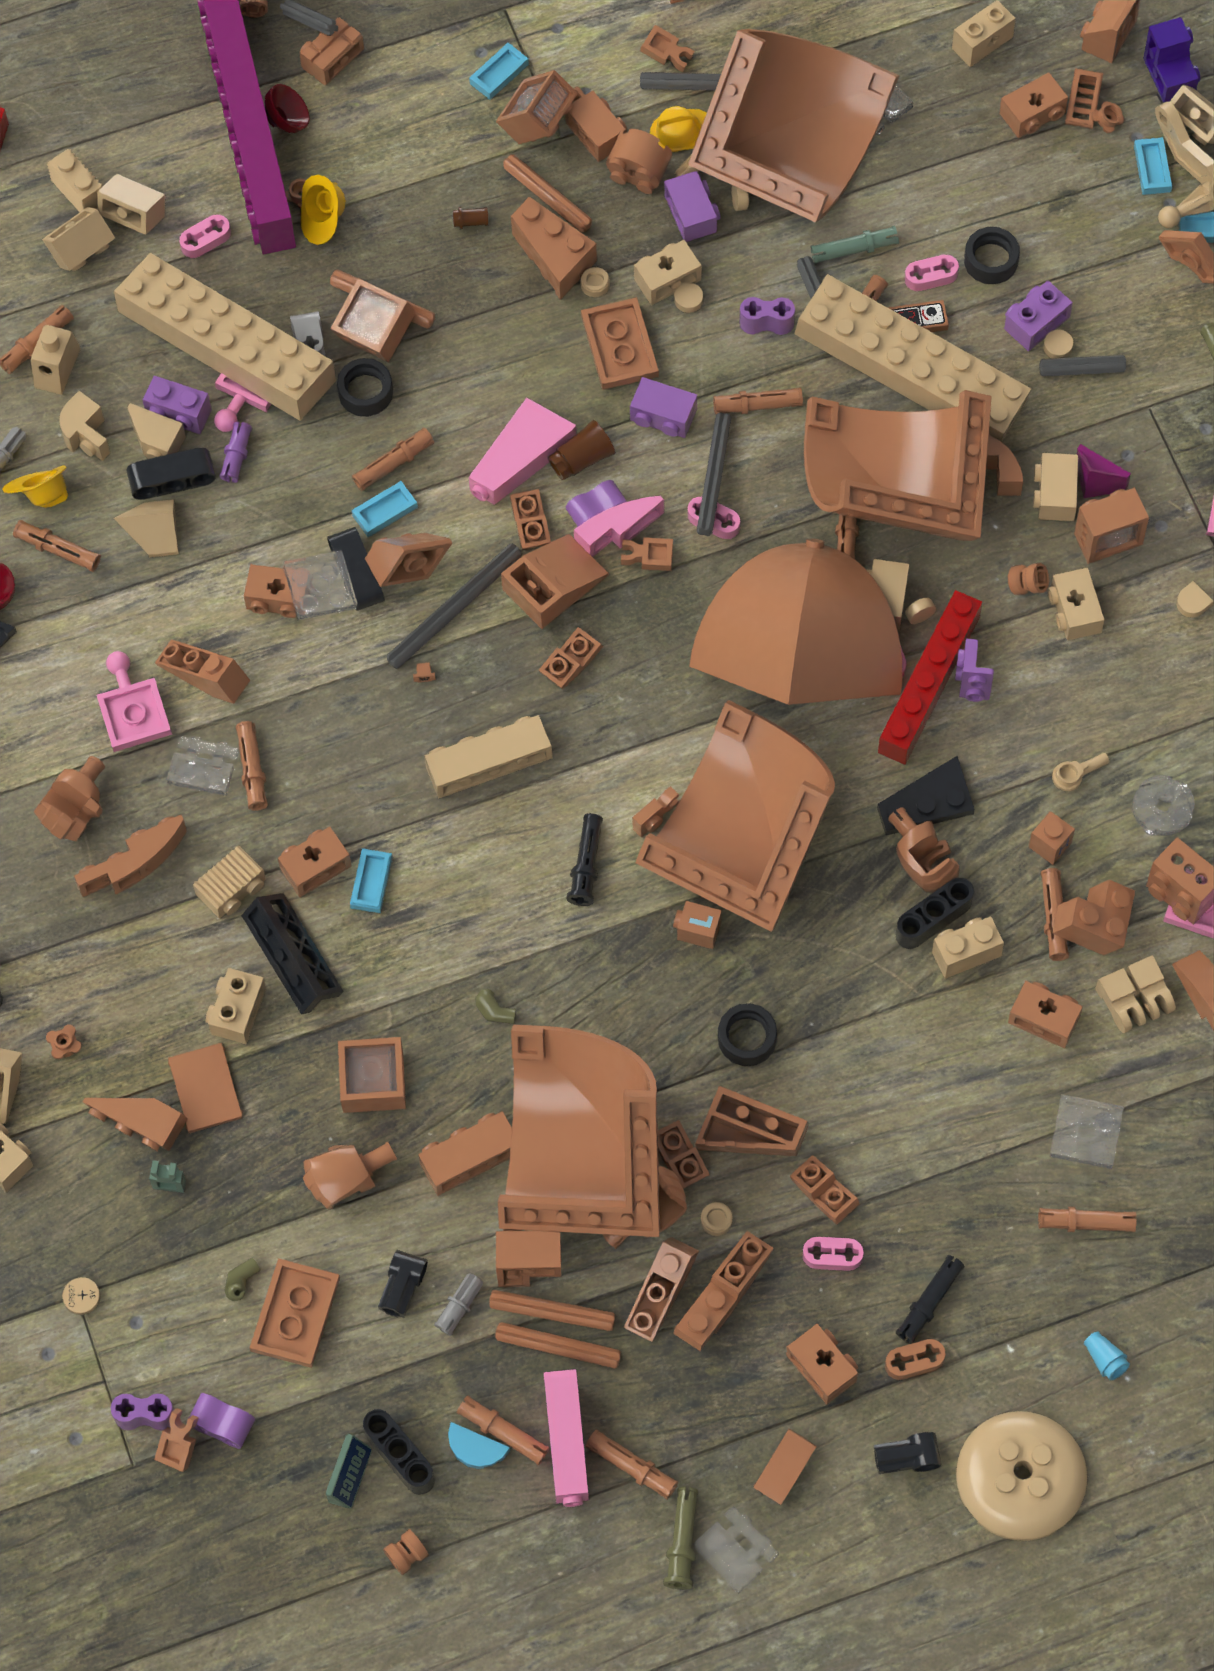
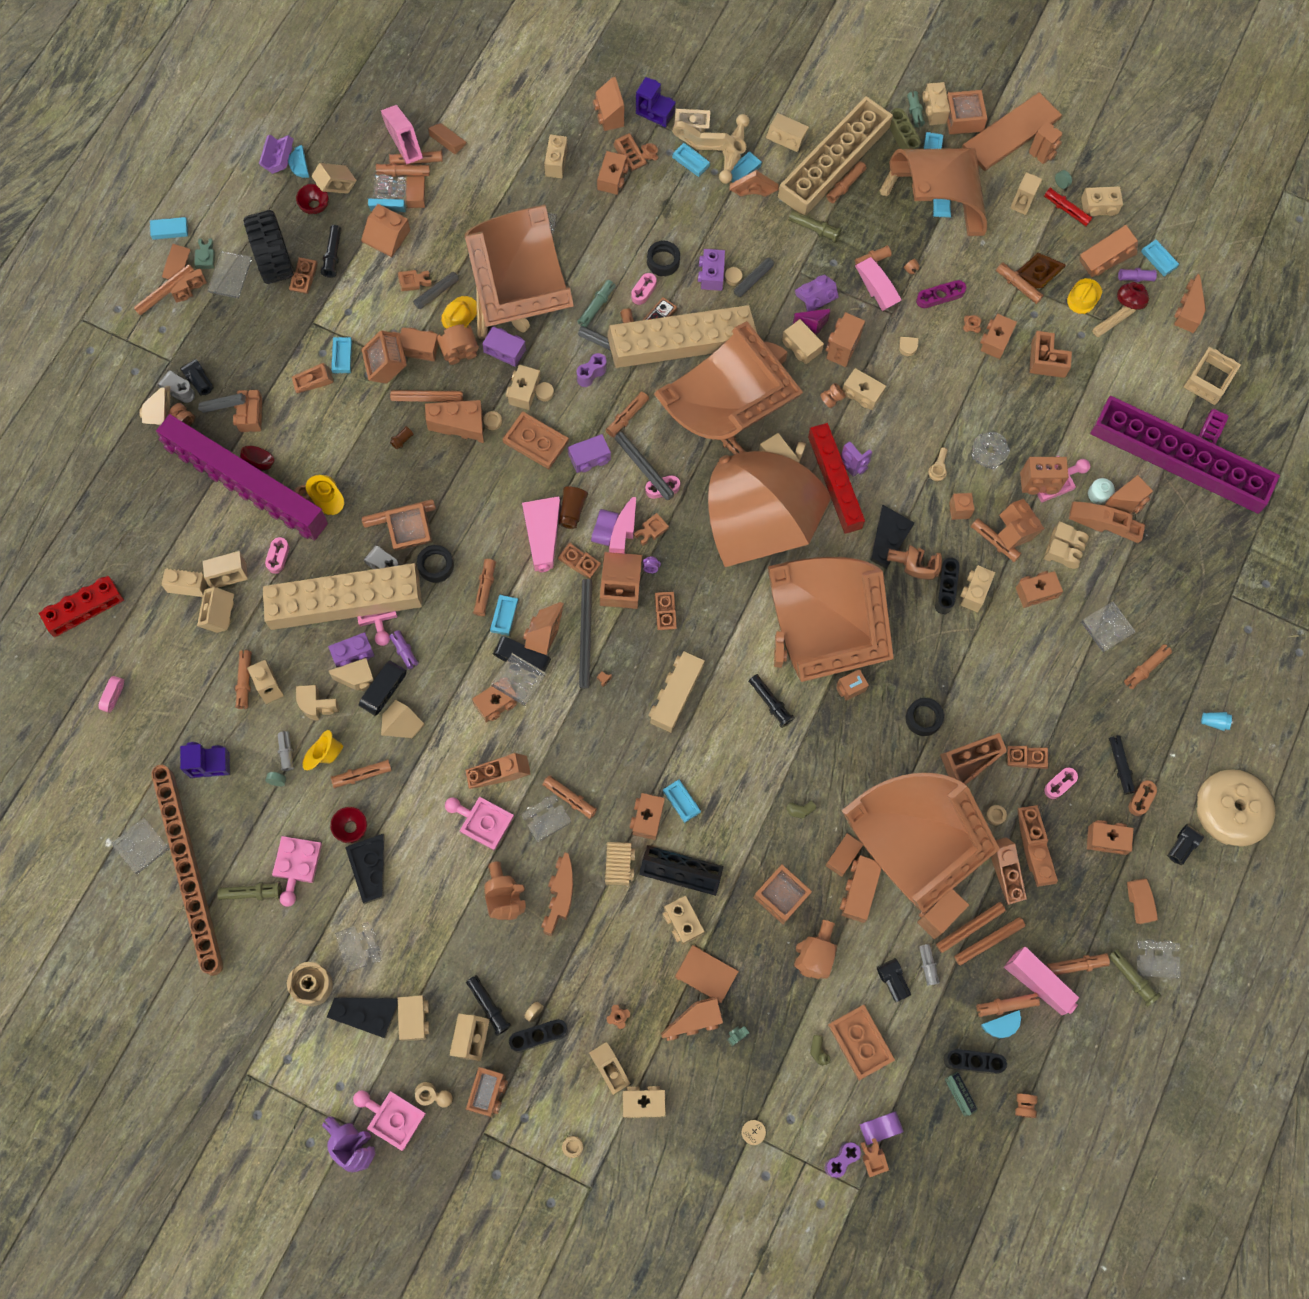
camera: 50 degrees left, 5 degrees up
(440, 72) = (312, 378): none -> nougat slope
(486, 1099) = (844, 855): none -> nougat slope
(607, 592) = (651, 564): none -> medium lavender plate
(1142, 446) = (817, 292): none -> medium lavender bracket

